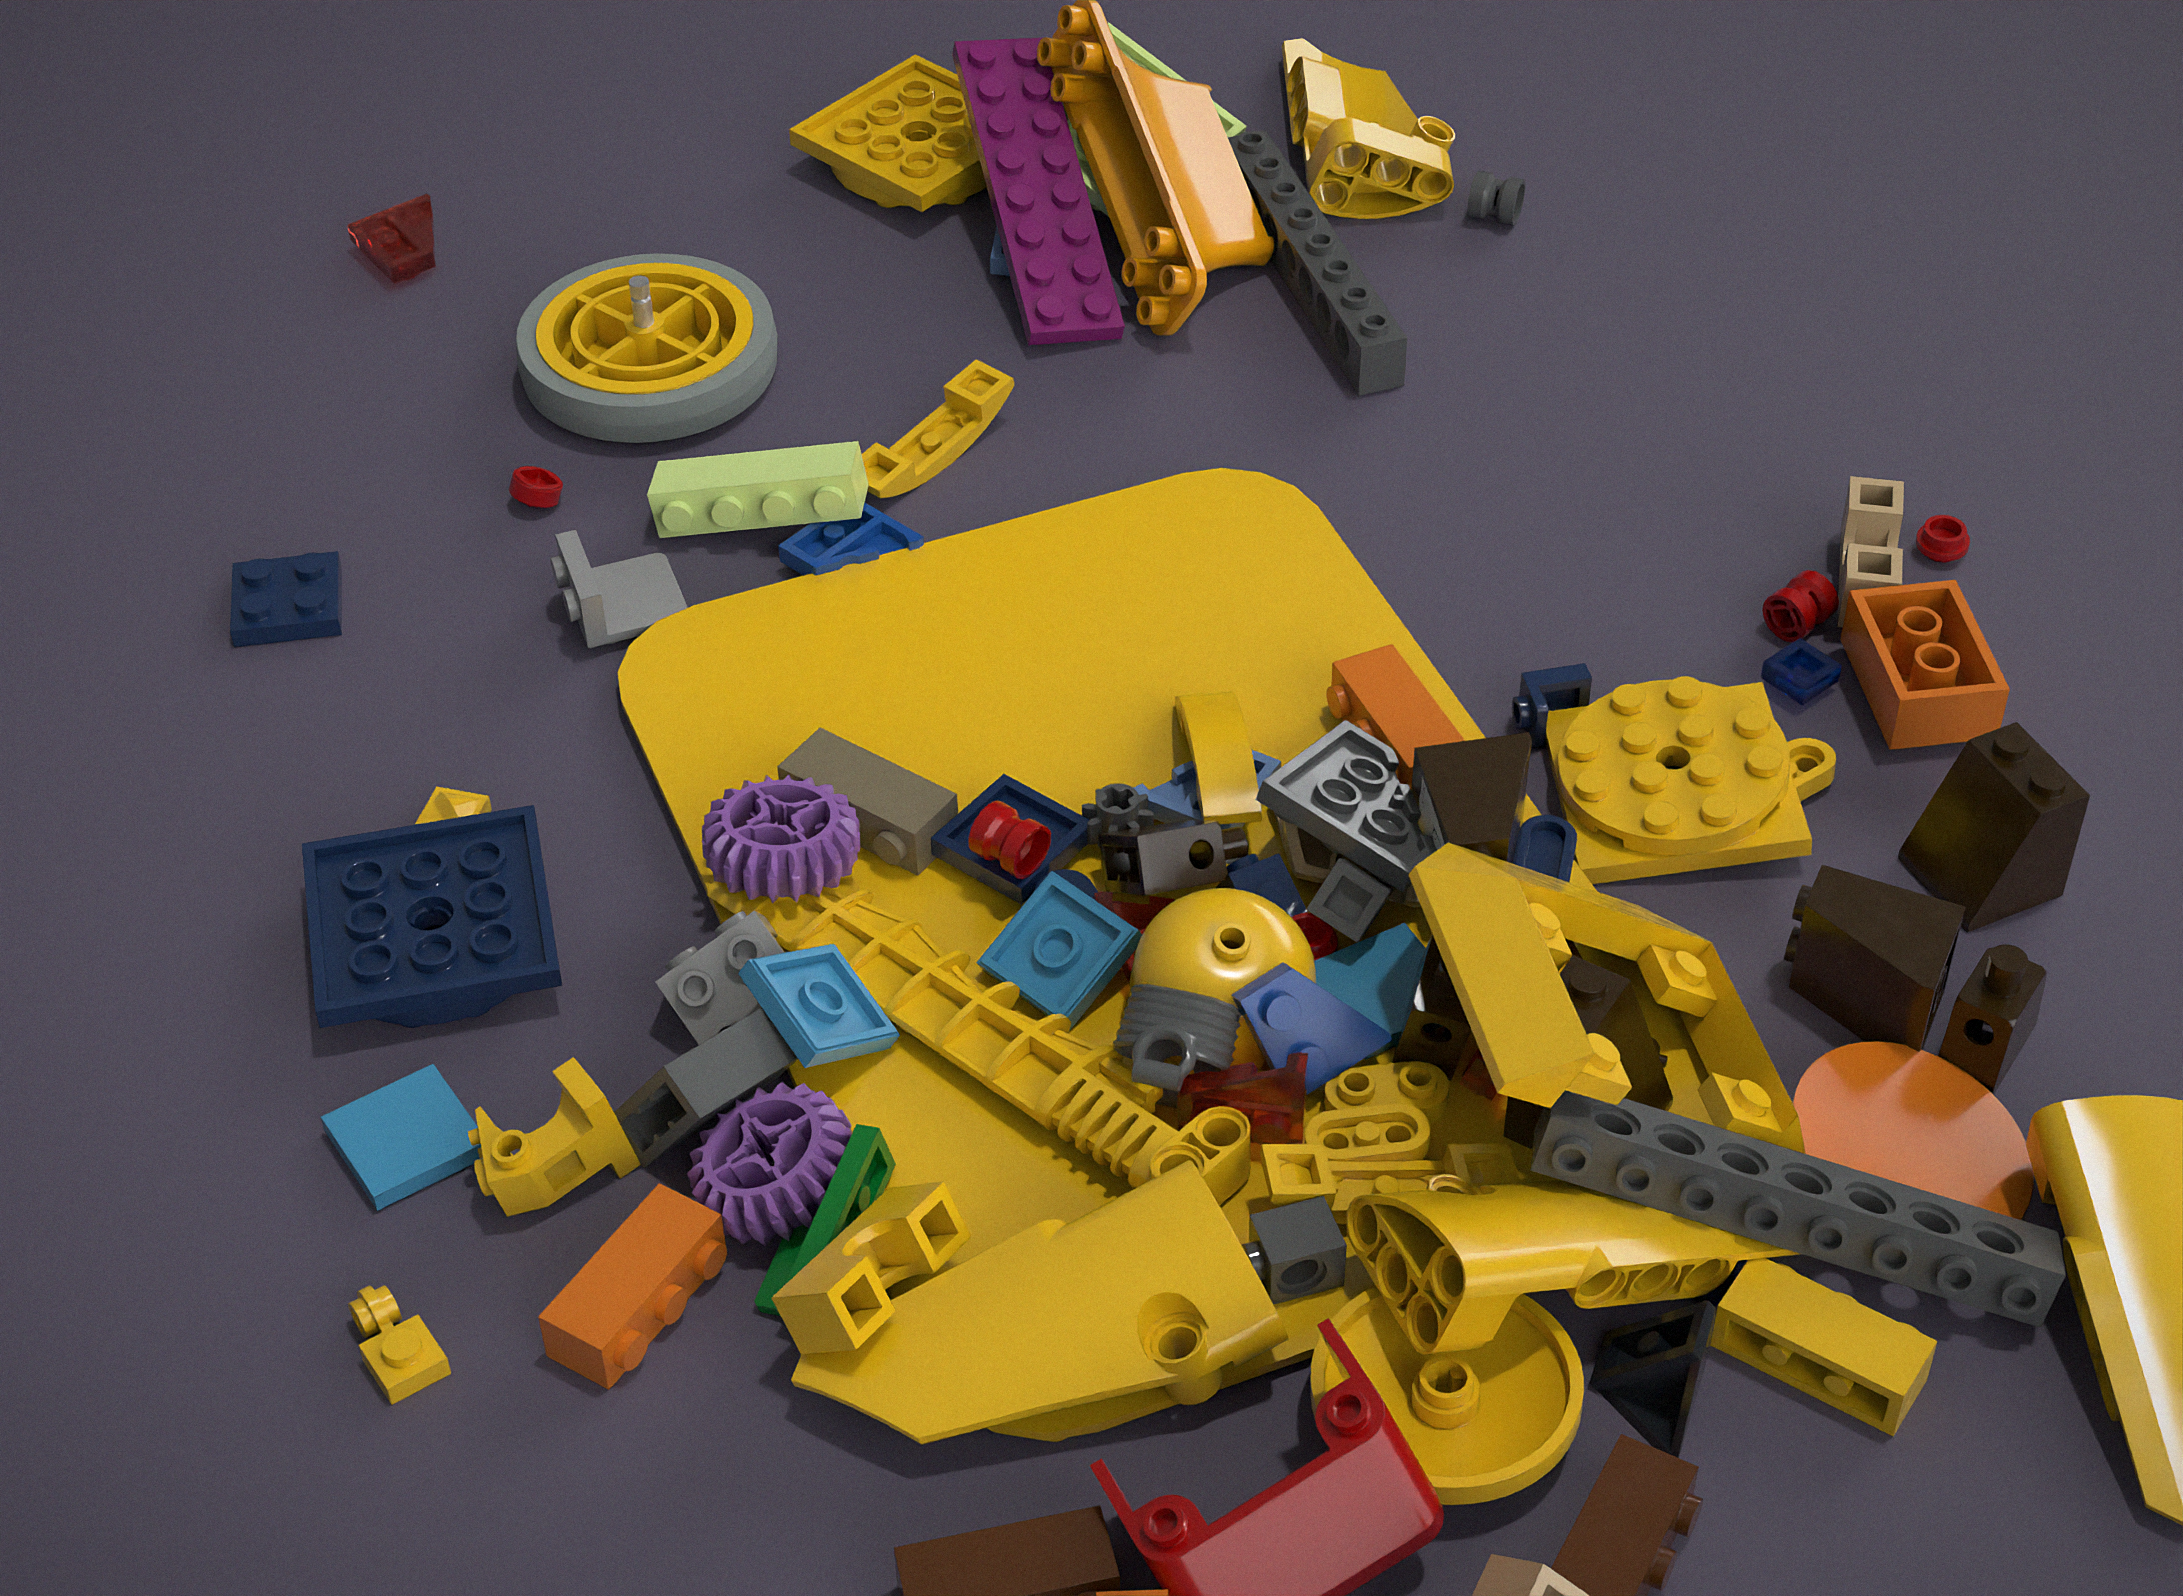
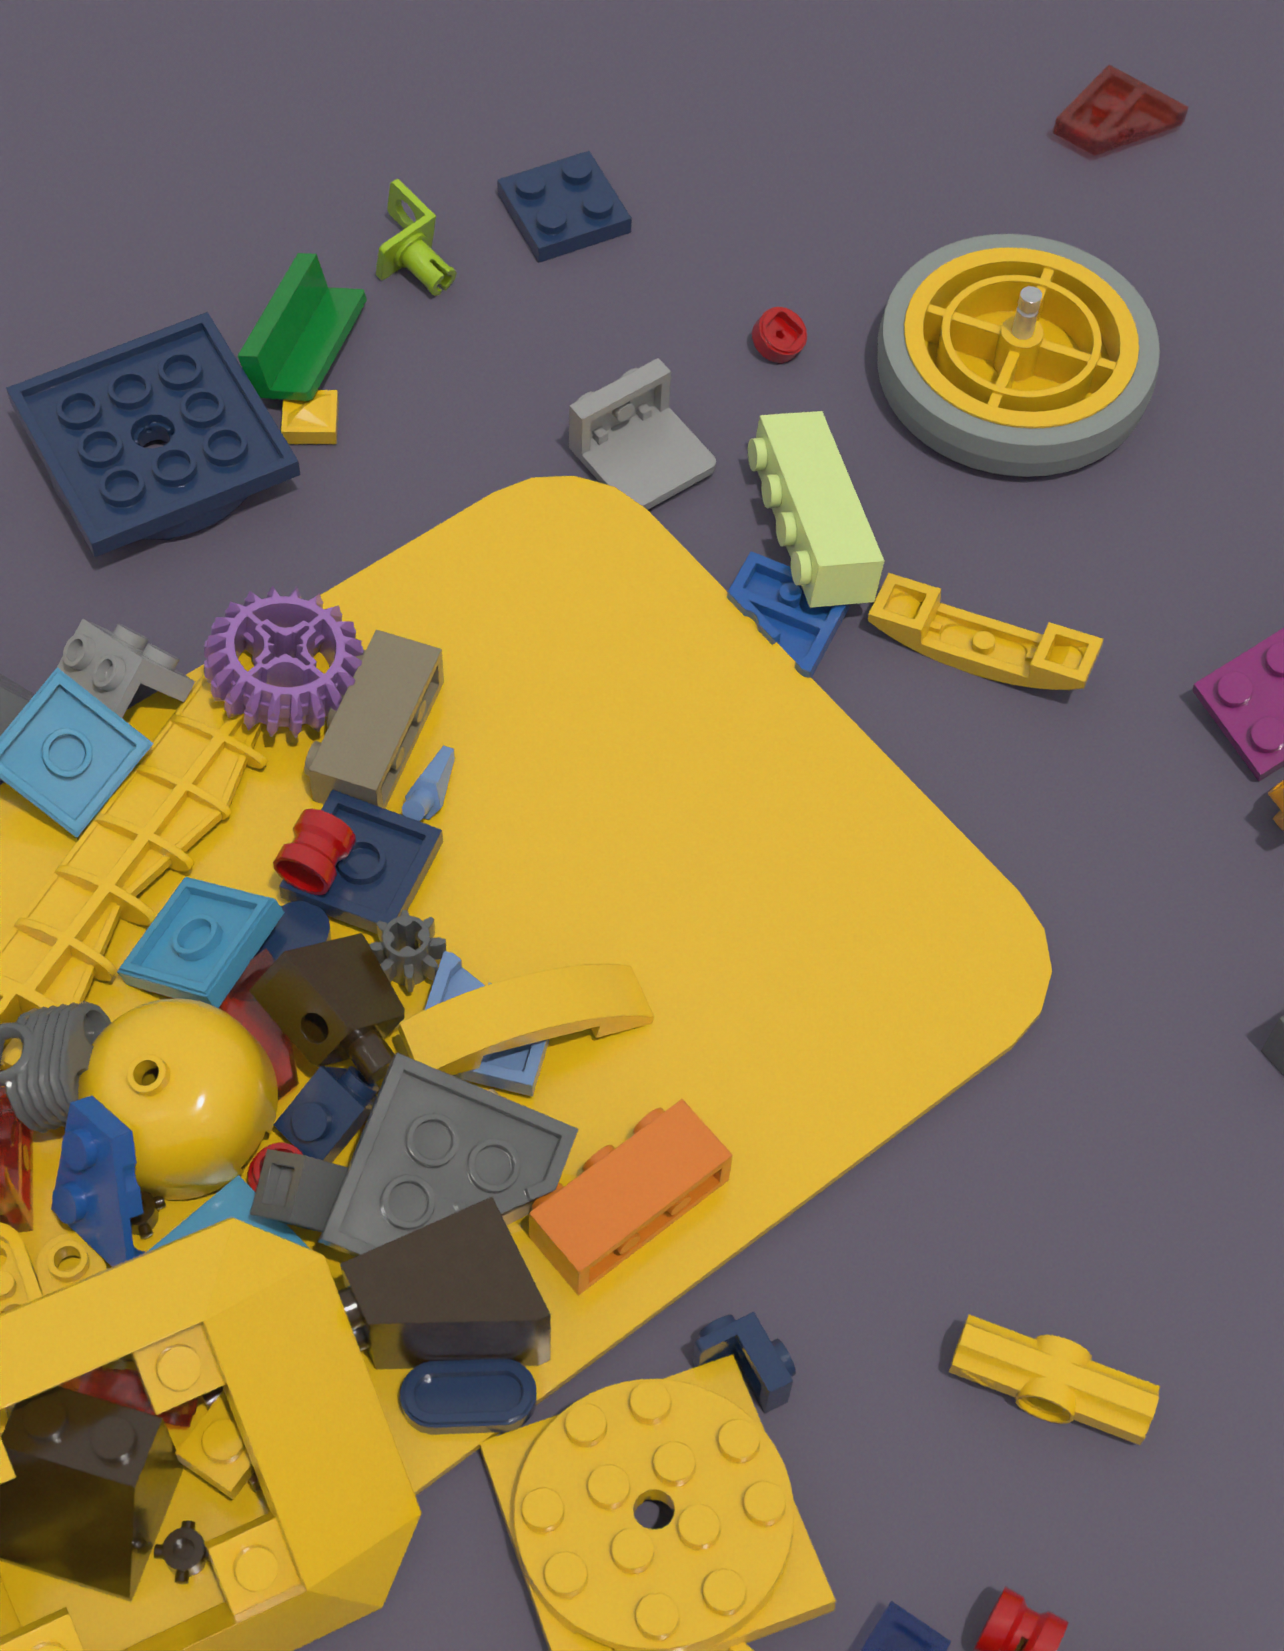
camera: 70 degrees right, 15 degrees up
(278, 697) = (413, 245): none -> lime bracket
(352, 790) = (299, 332): none -> green panel
(966, 789) = (429, 790): none -> medium blue bar
(1605, 548) = (1055, 1379): none -> yellow piece

